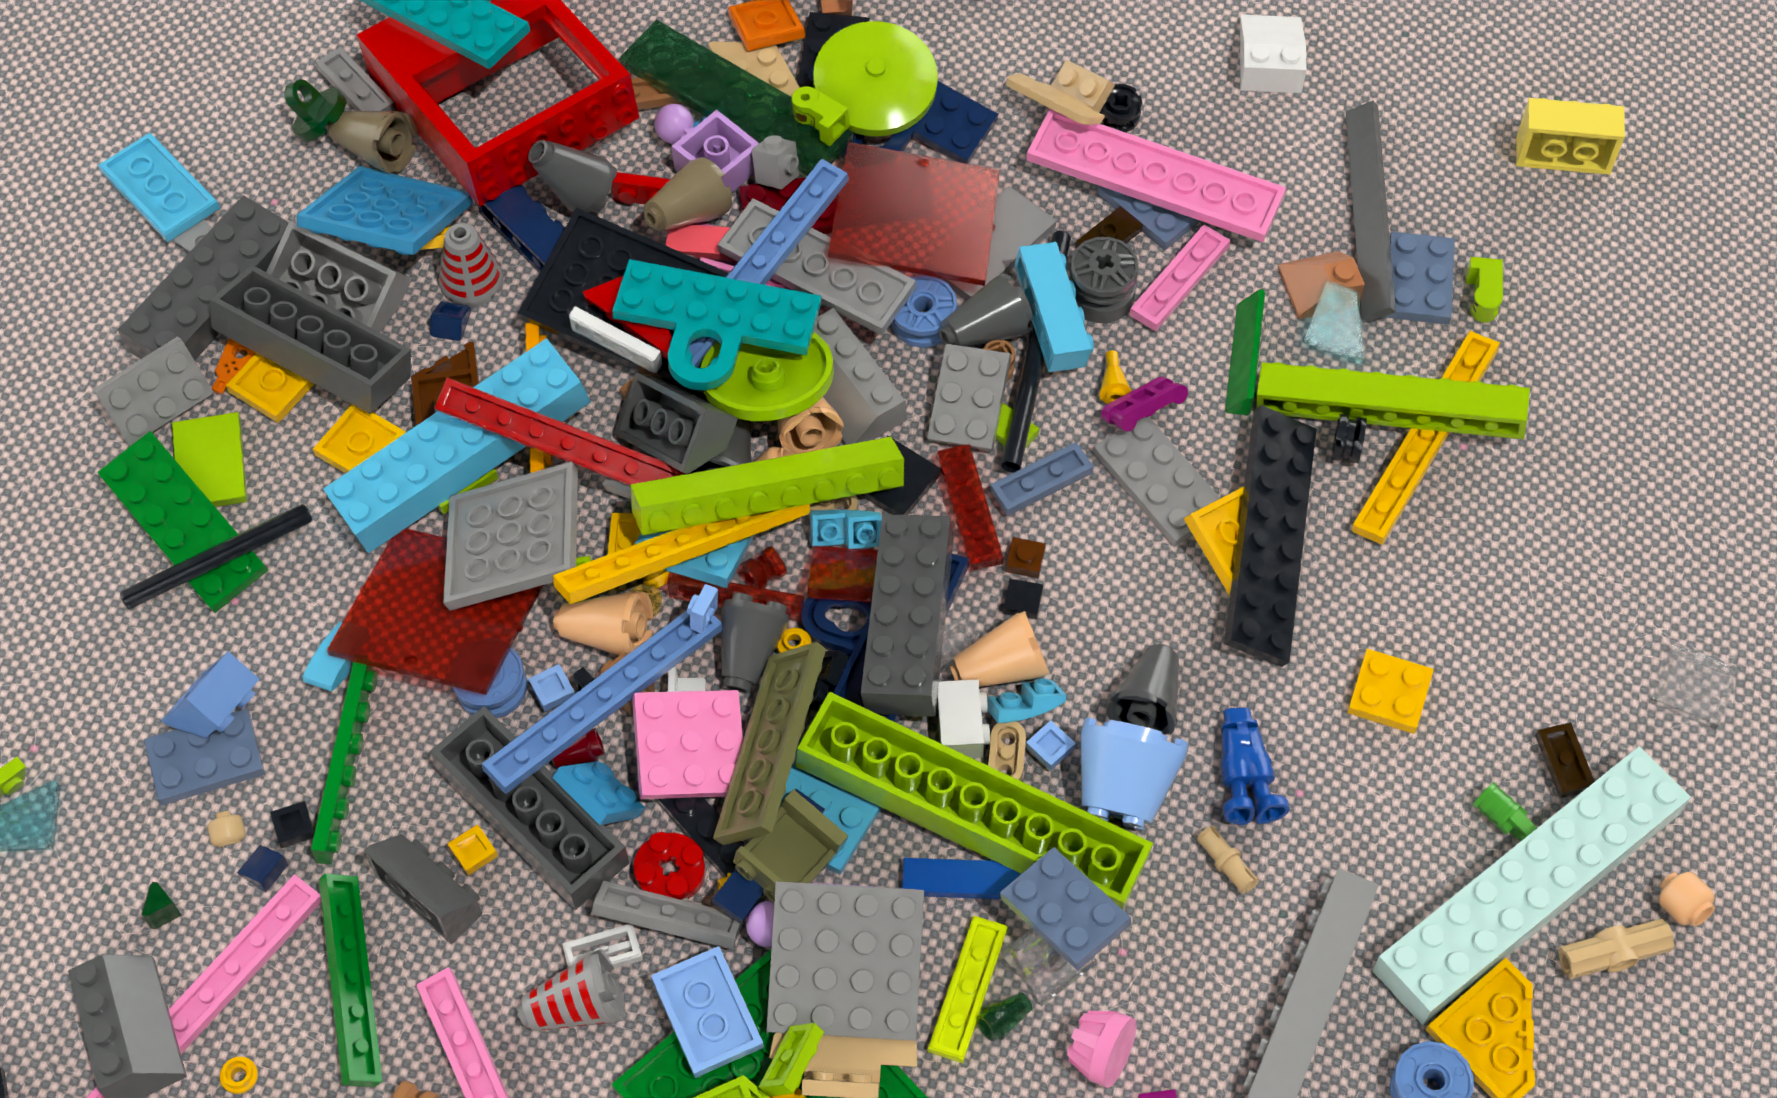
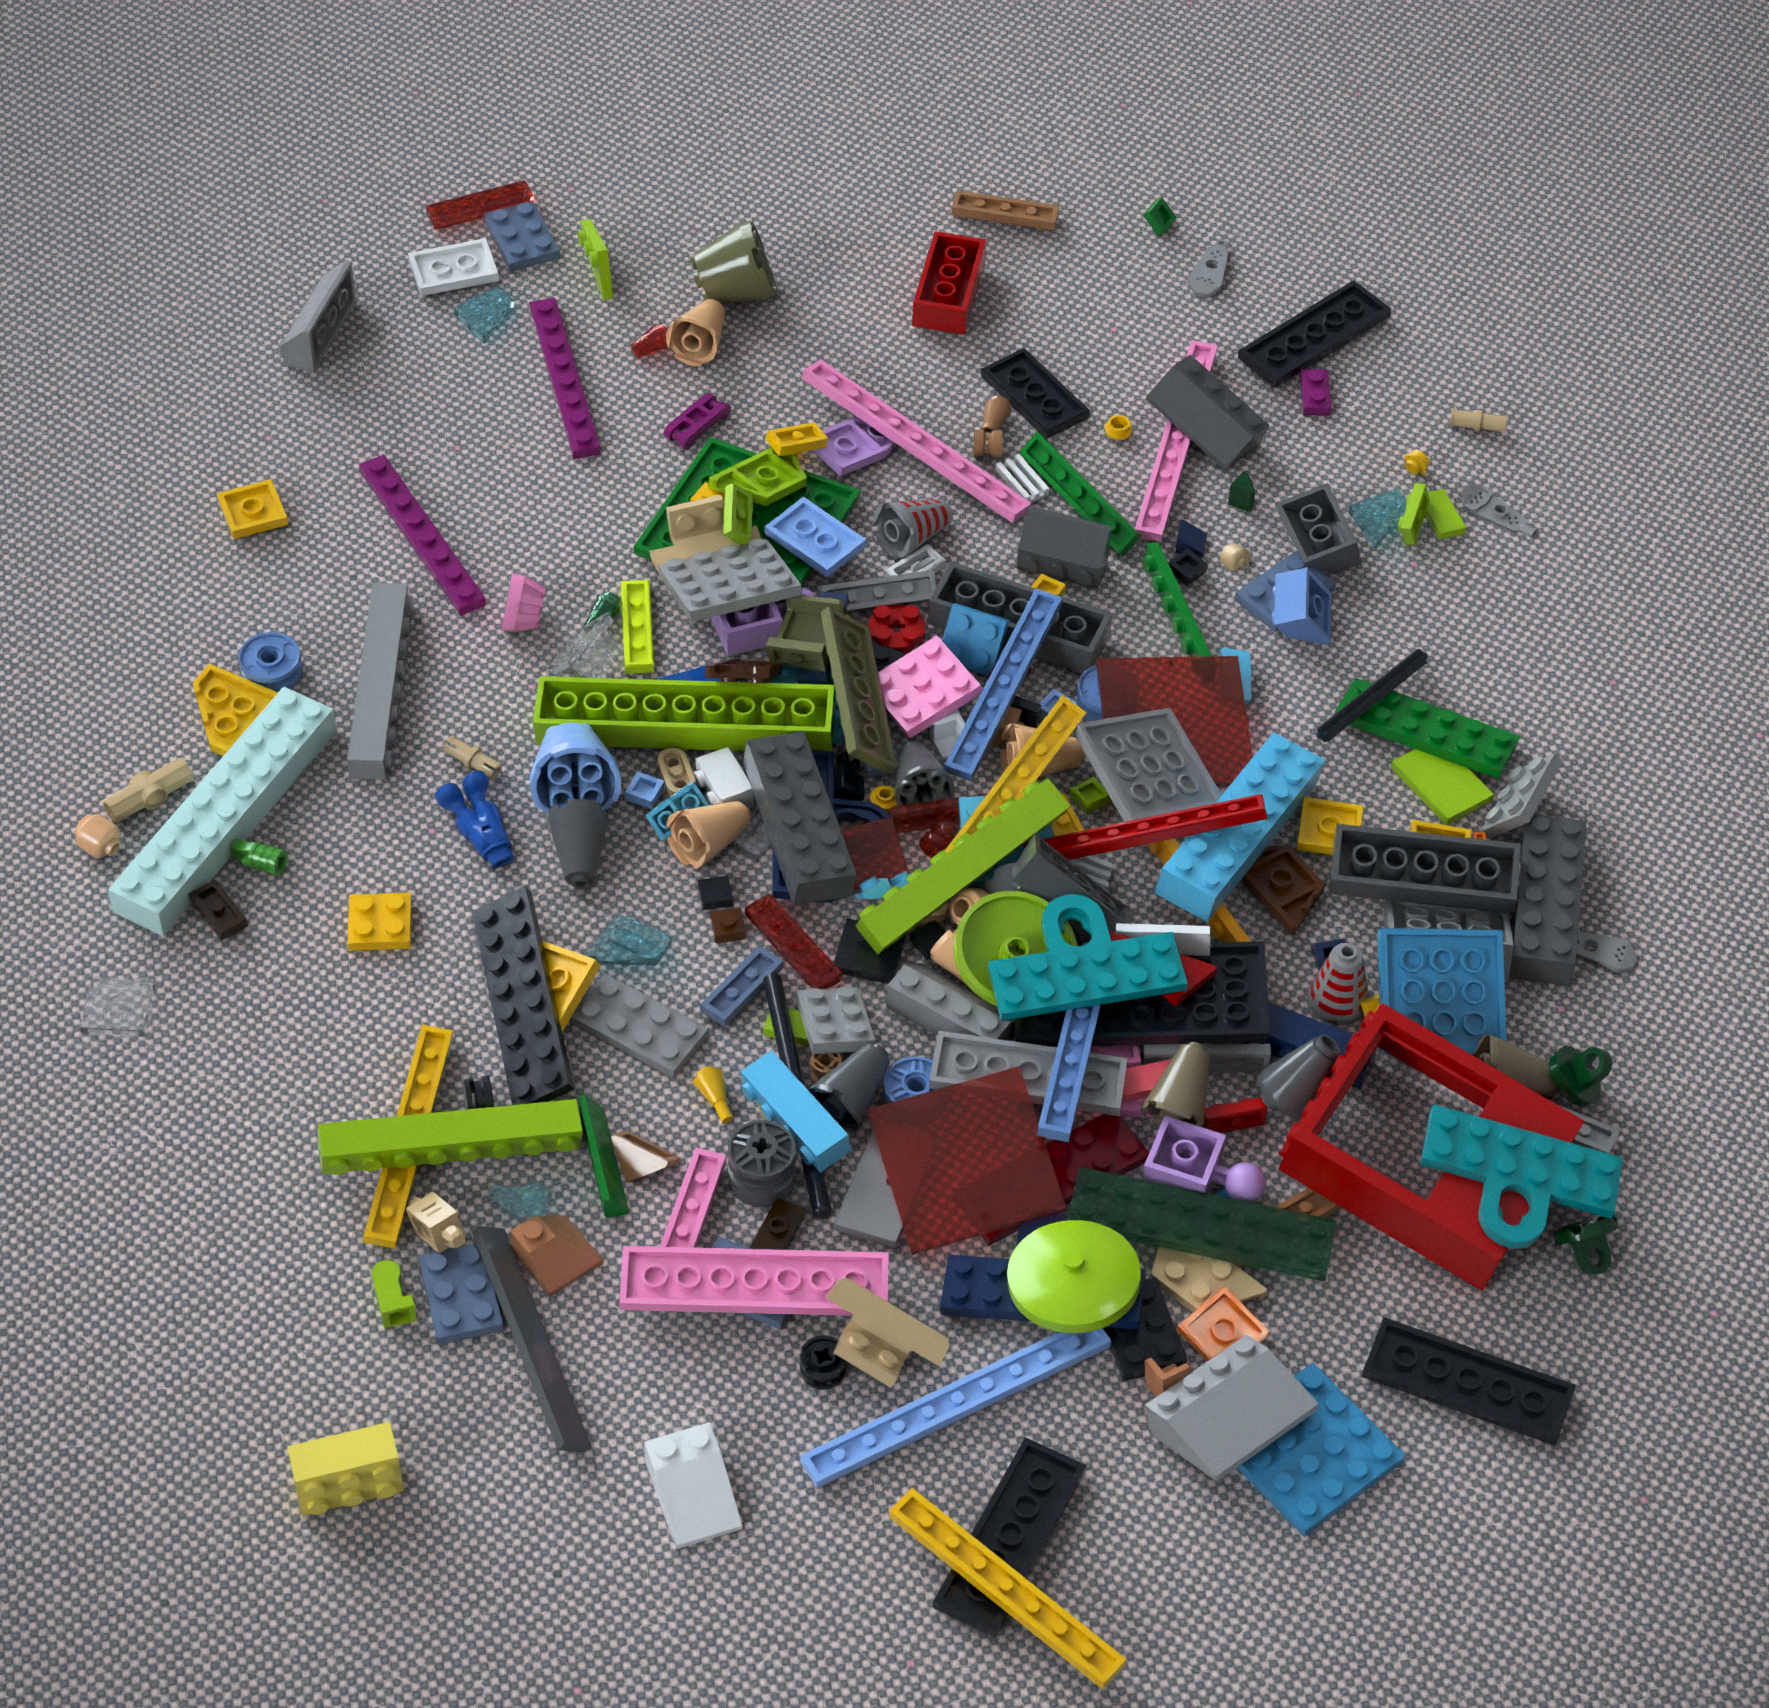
camera: 155 degrees right, 10 degrees down
(117, 801) = (1319, 530): none -> dark grey slope
(159, 187) = (1667, 976): medium azure tile -> none
(399, 1011) = (1026, 477): none -> white tile
(702, 608) = (963, 753): light blue plate -> none
(775, 162) = (1123, 1161): light grey brick -> none
(820, 112) = (1104, 1205): lime leg -> none
(886, 818) = (734, 670): none -> reddish brown wing
(1050, 40) = (950, 1404): none -> light blue plate
(1065, 908) = (580, 644): sand blue plate -> none
(1136, 565) = (630, 944): none -> clear light blue wing
(1143, 402) = (677, 1070): magenta plate -> none
(1204, 343) = (639, 1156): none -> medium nougat slope
(1428, 330) = (436, 1222): none -> tan piece

